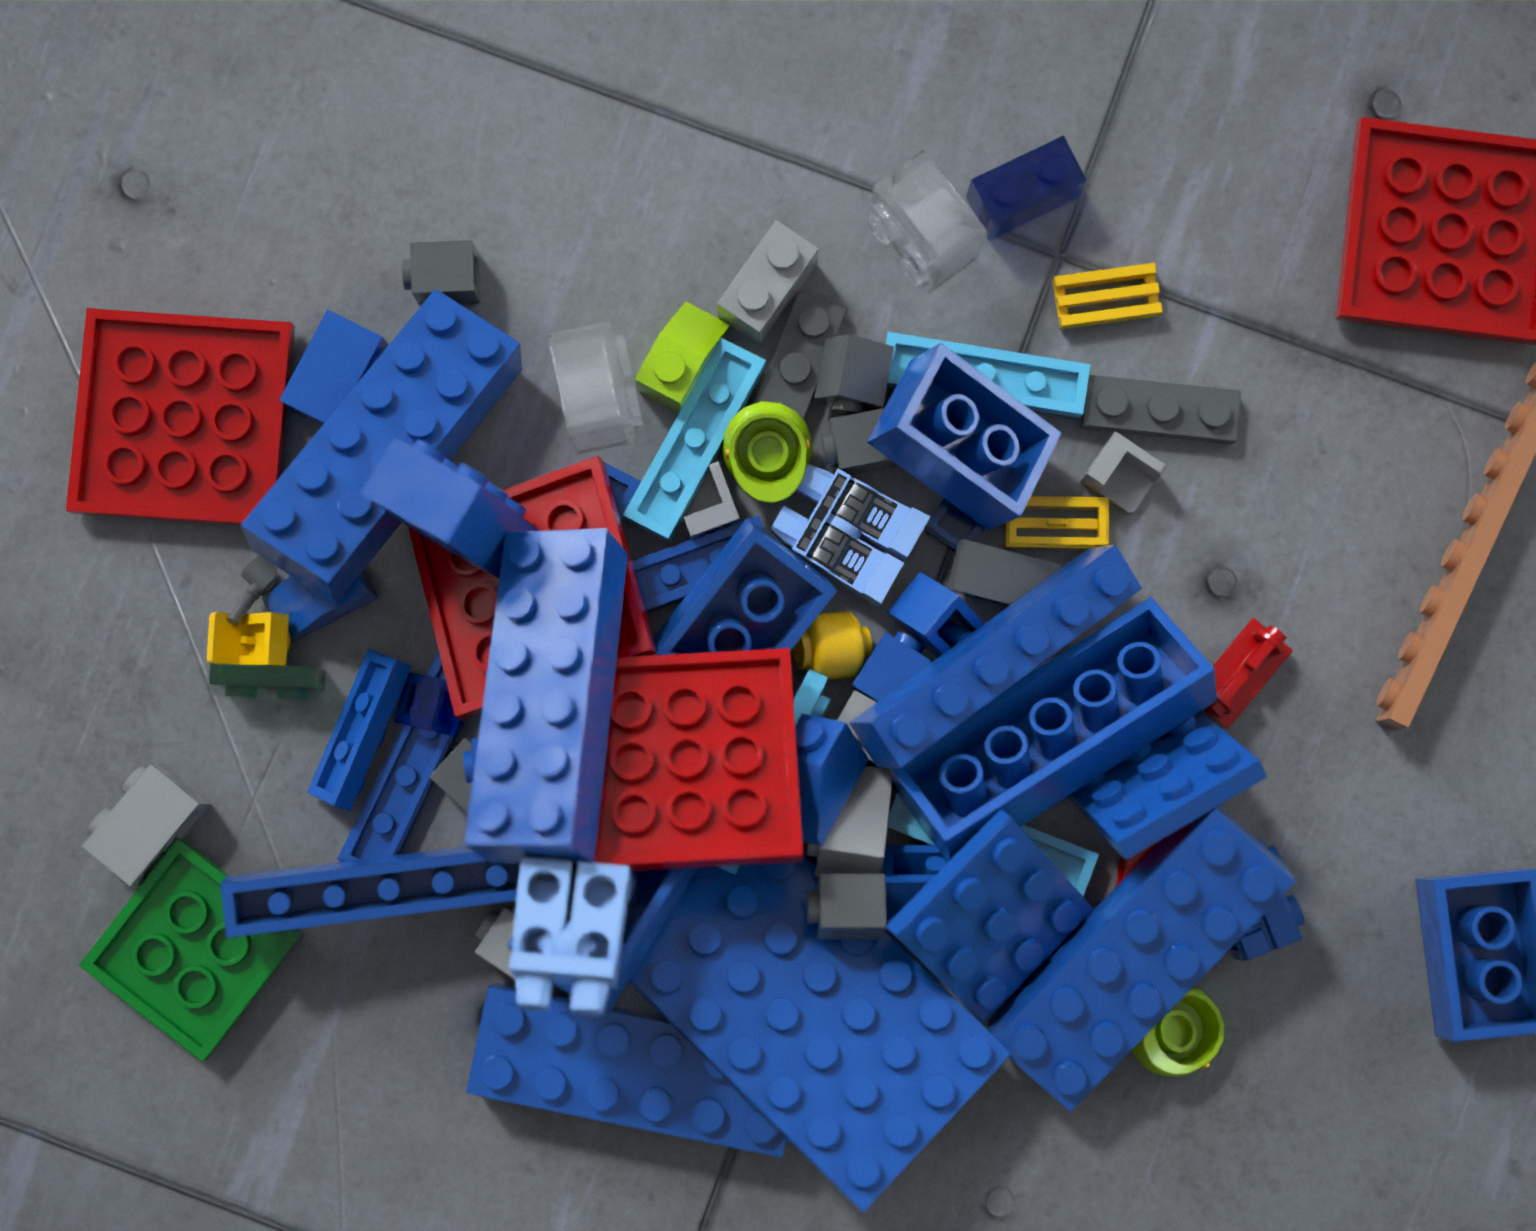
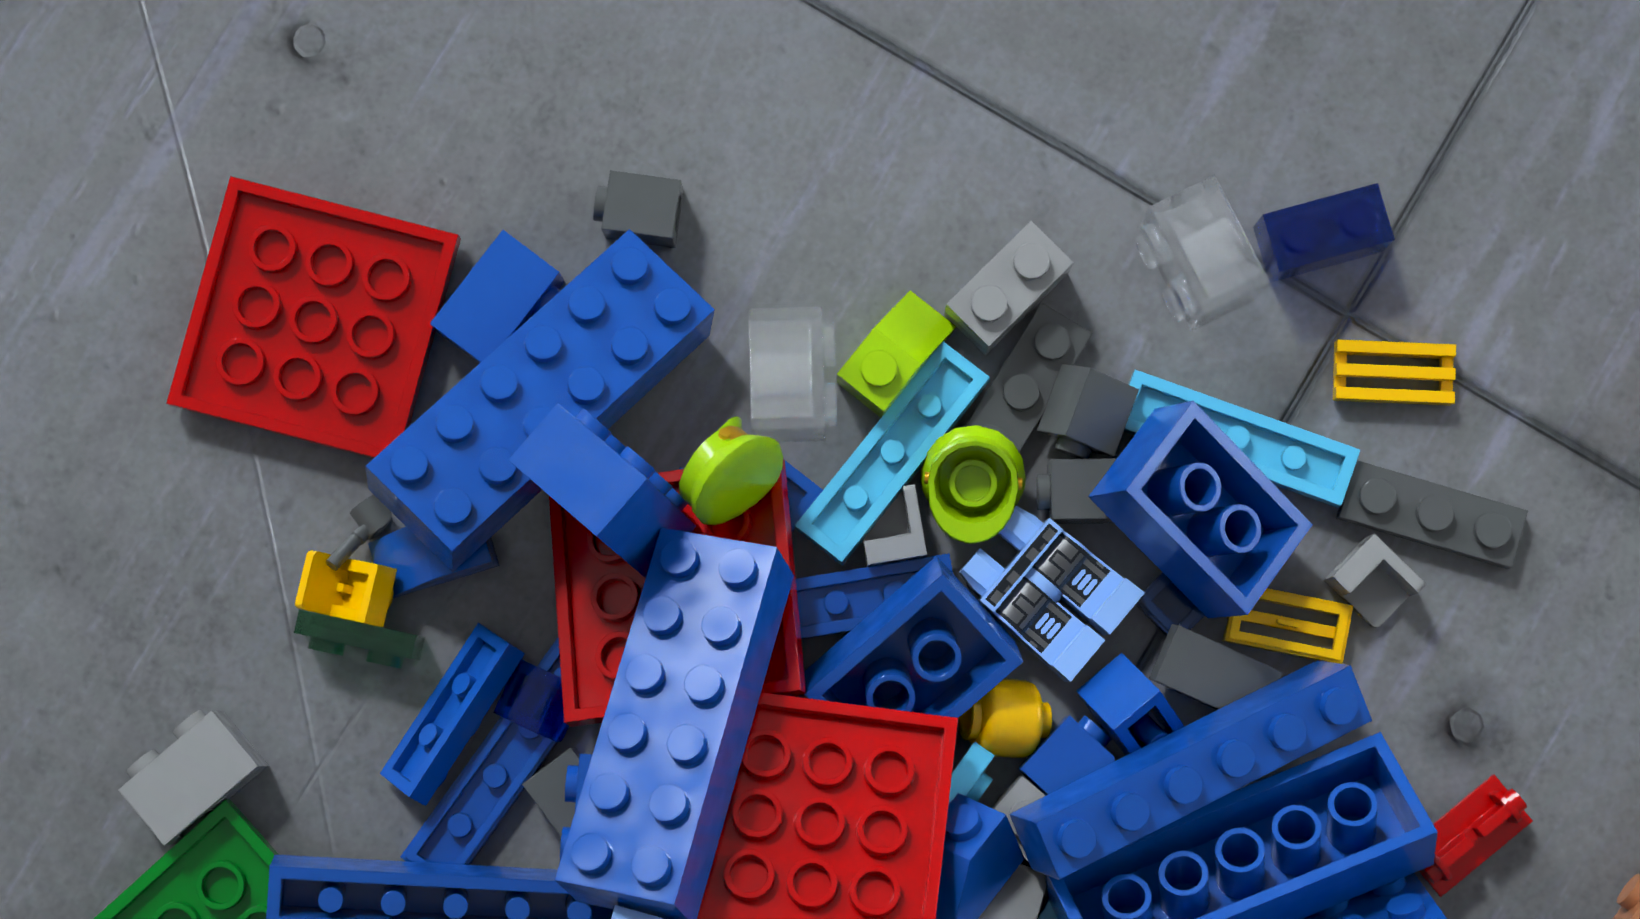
camera: 15 degrees right, 0 degrees up
(557, 476) = (730, 473): none -> lime piece

